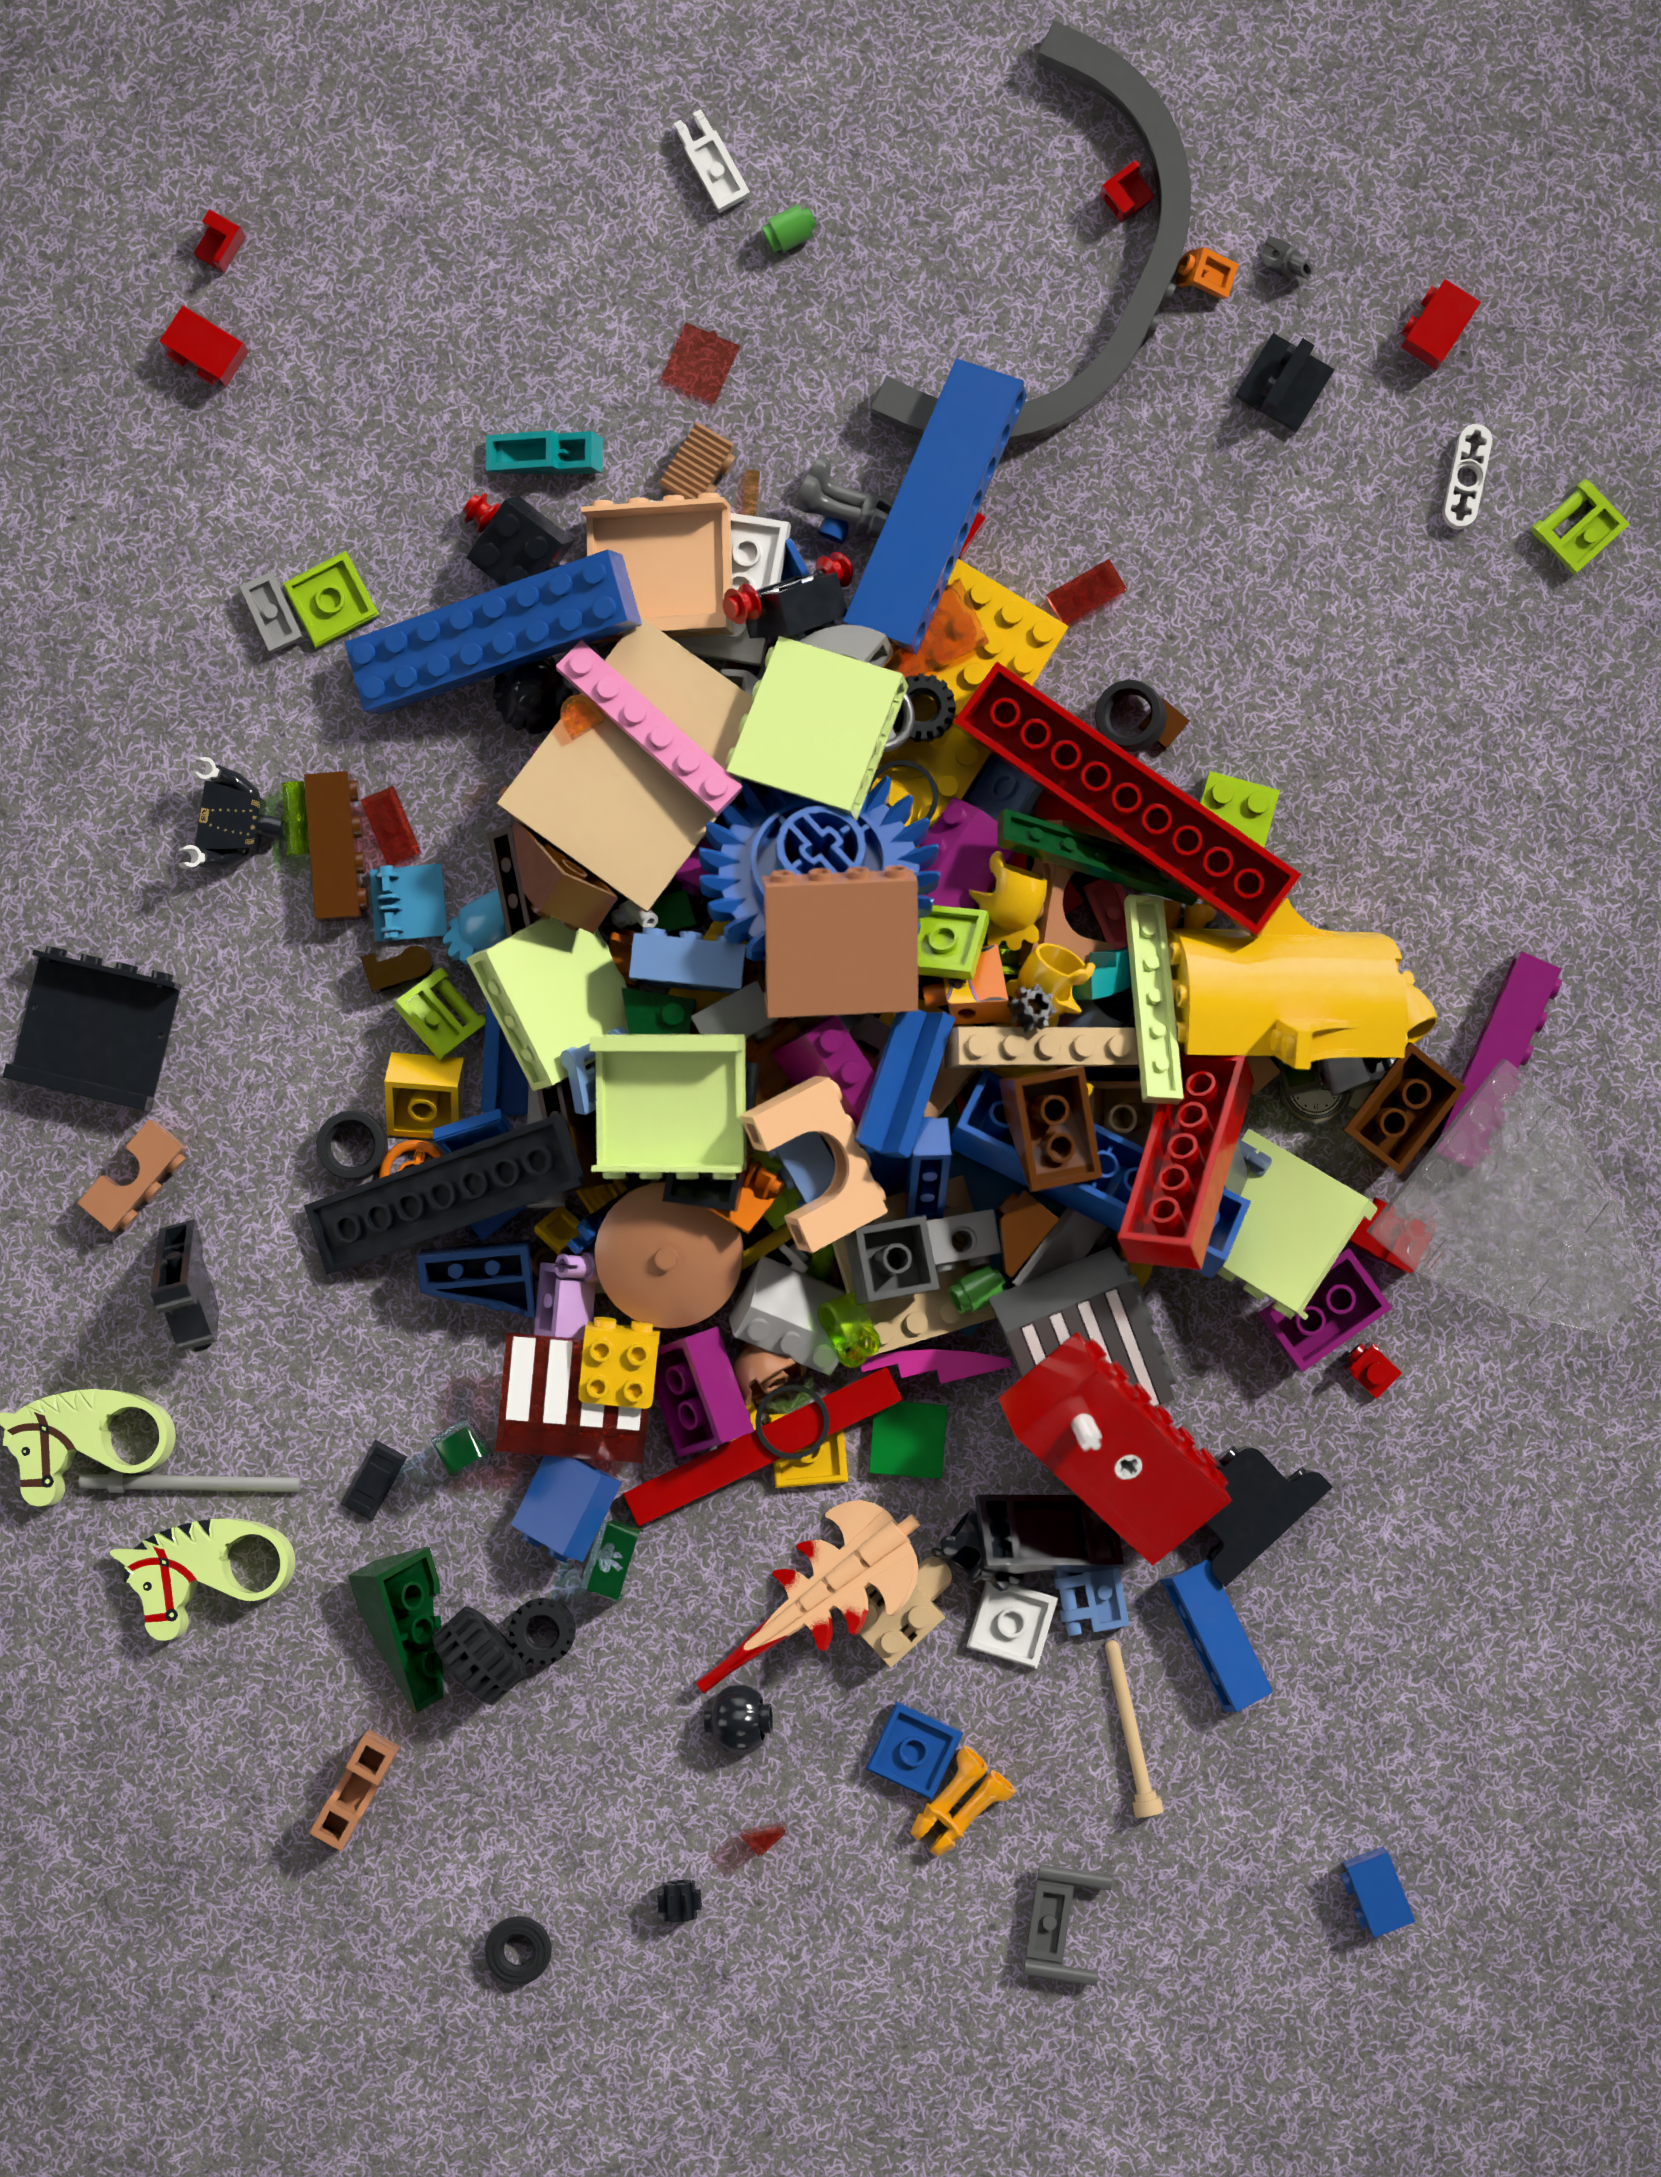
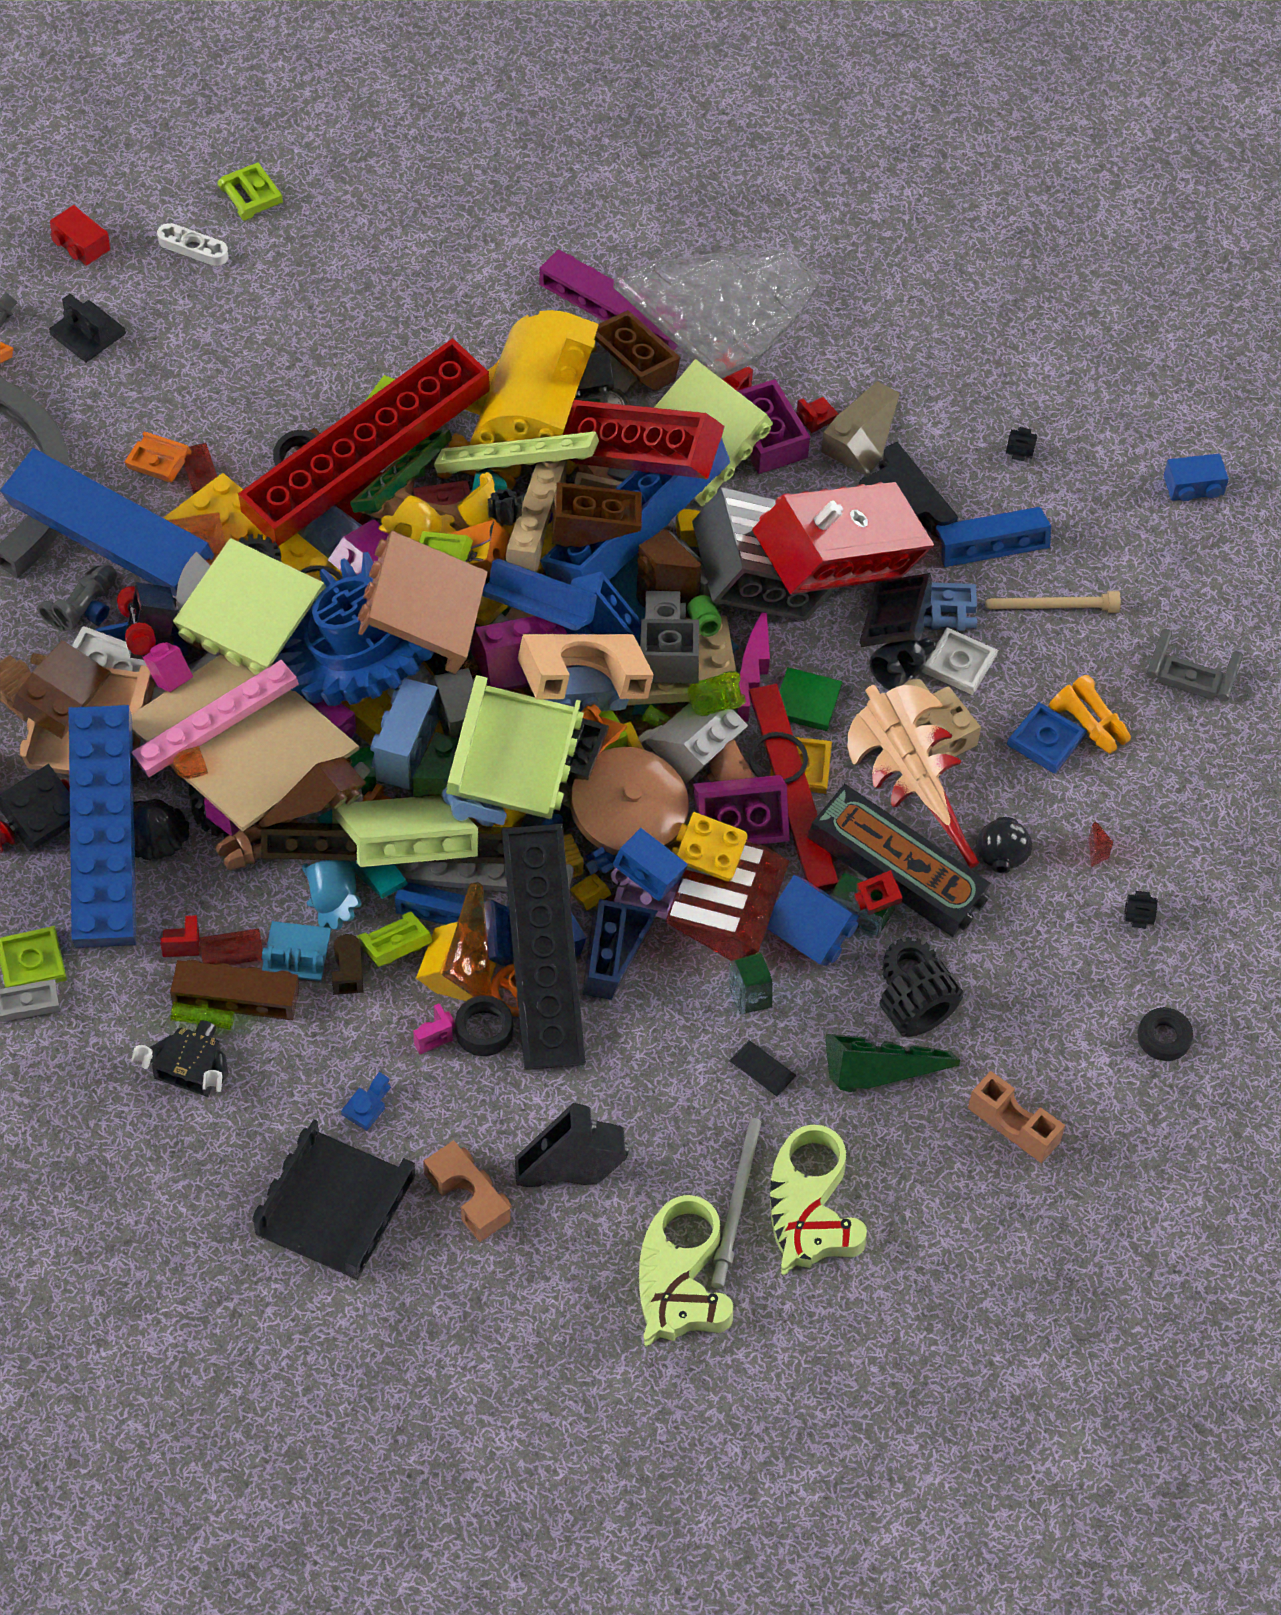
camera: 85 degrees left, 30 degrees down
(222, 1034) = (366, 1106): none -> blue plate
(325, 1086) = (434, 1034): none -> dark pink bracket
(391, 764) = (181, 941): none -> red panel
(421, 1109) = (468, 954): none -> clear orange wing
(571, 1300) = (650, 864): none -> blue panel
(593, 1586) = (881, 883): none -> red brick
(673, 527) = (59, 682): none -> reddish brown slope
(678, 1596) = (878, 842): none -> brick
(720, 647) = (167, 666): none -> dark pink brick
(1088, 535) = (157, 457): none -> orange plate
(1357, 1437) = (862, 429): none -> dark tan wedge
(1378, 1651) = (1021, 444): none -> black gear

